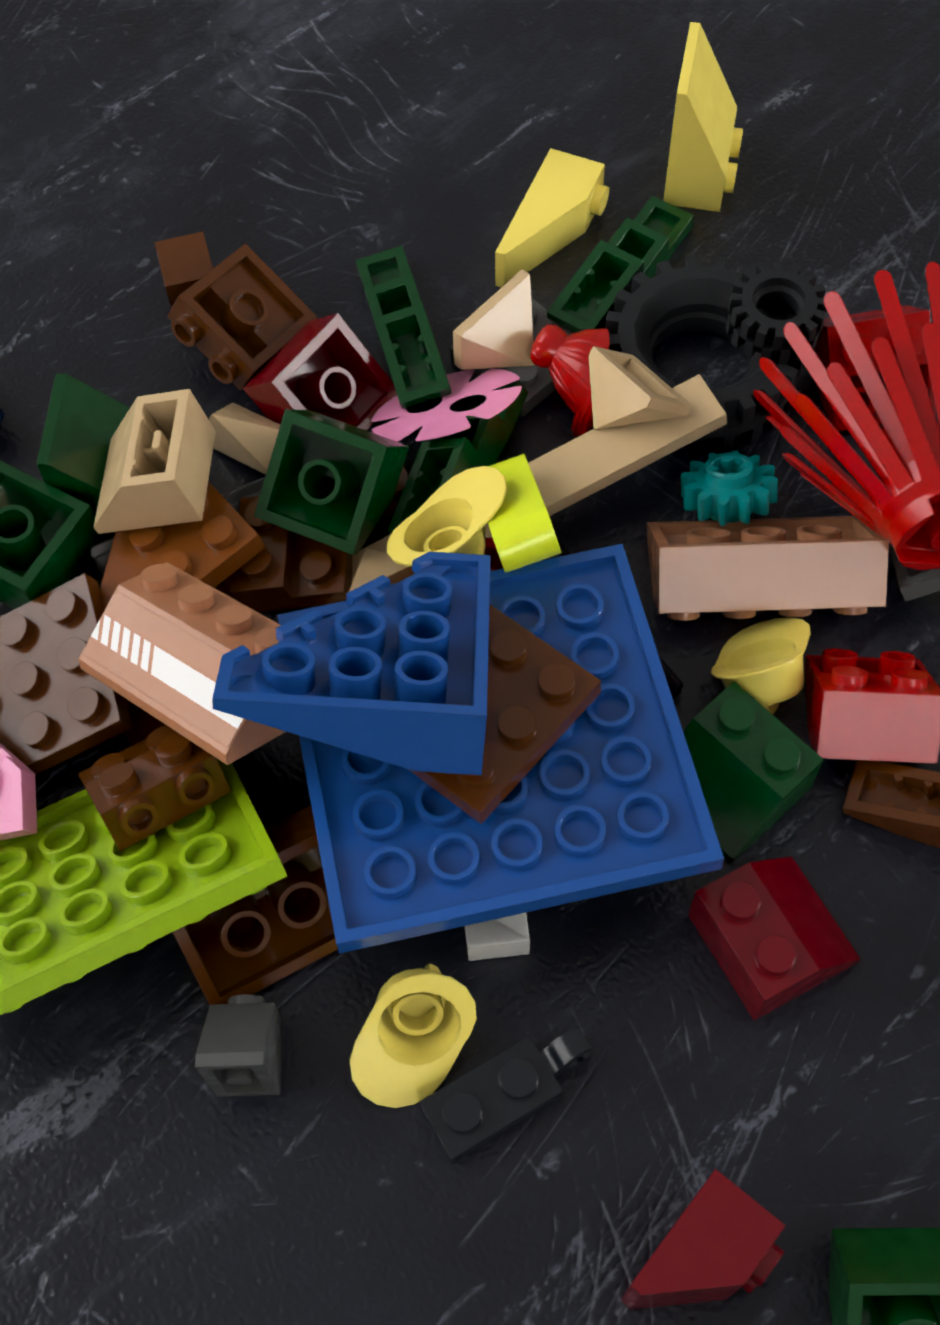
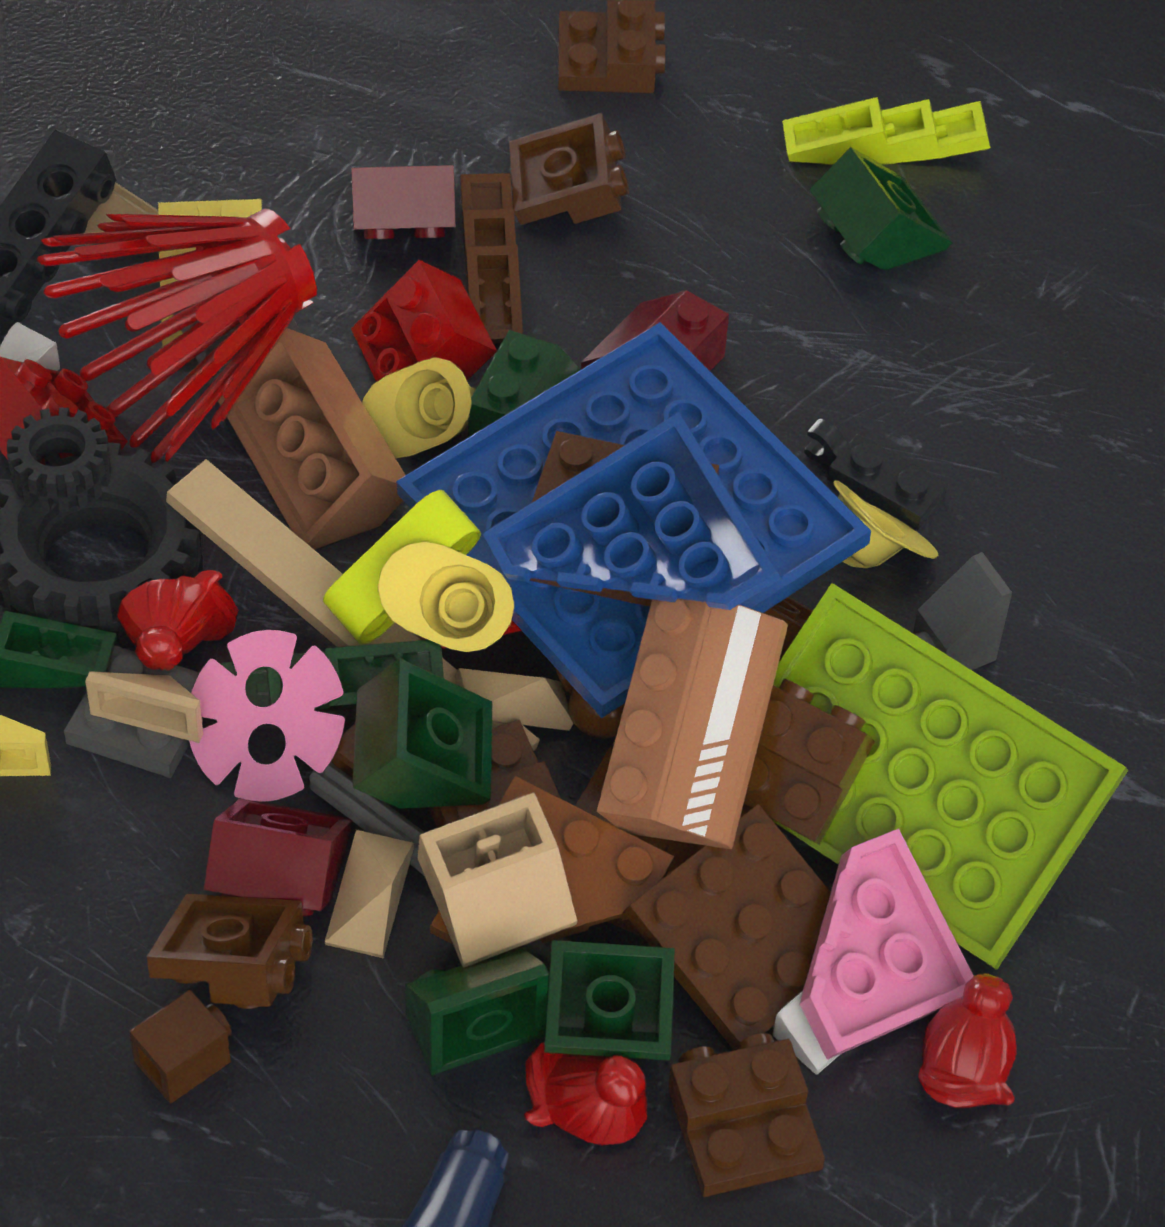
camera: 120 degrees left, 10 degrees down
(403, 327) = (165, 812): dark green slope -> none
(629, 392) = (216, 533): tan slope -> none
(711, 1250) = (926, 308): dark red slope -> none
(729, 487) = (258, 471): teal gear -> none

